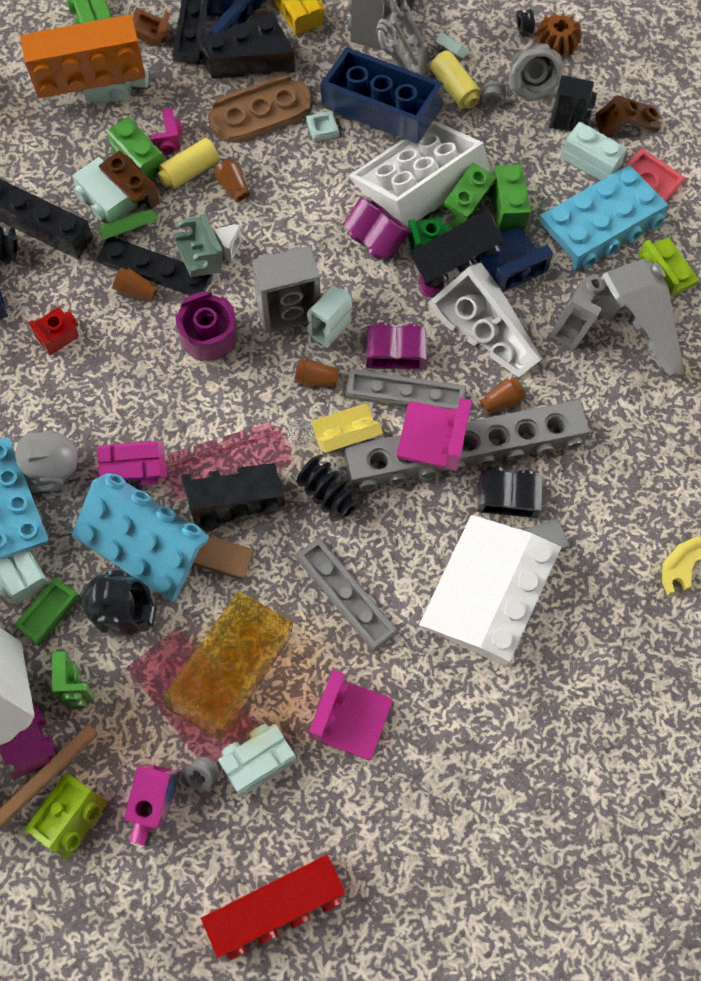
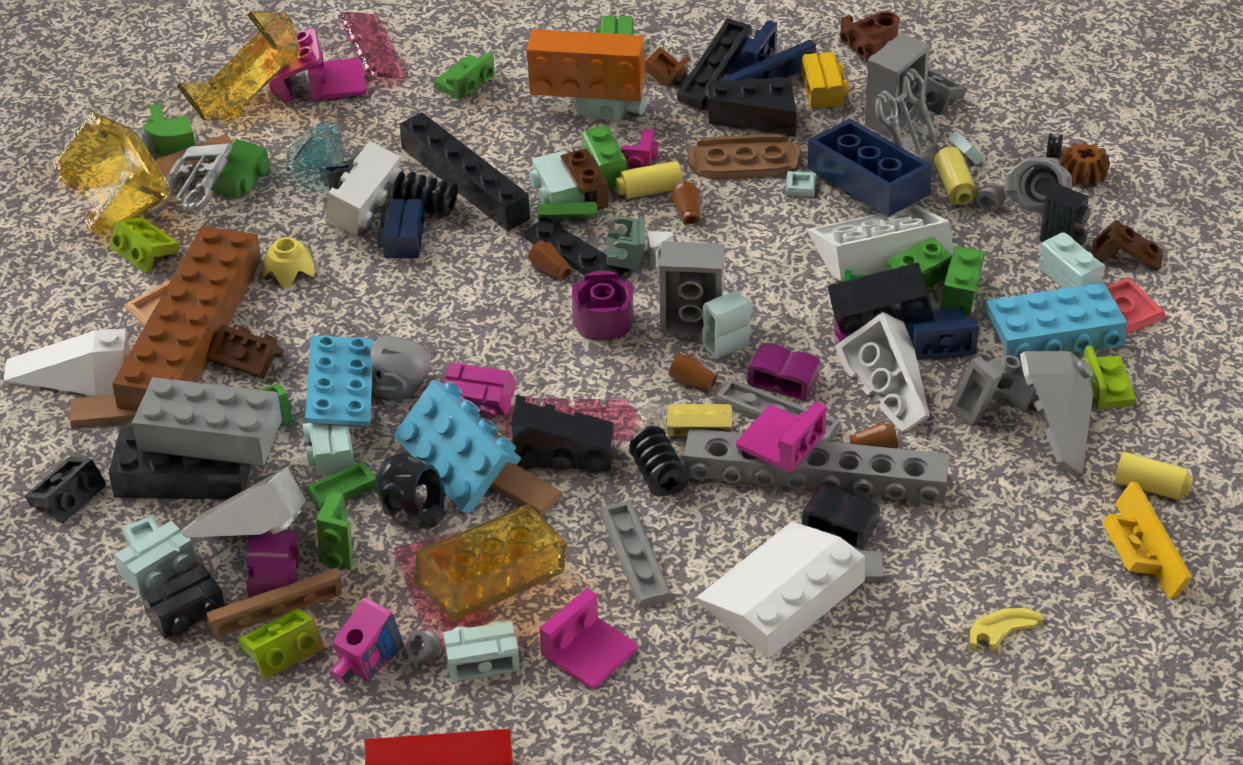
camera: 25 degrees right, 25 degrees down
(55, 330) = (457, 275): red brick -> none
(376, 228) = (810, 271): magenta brick -> none

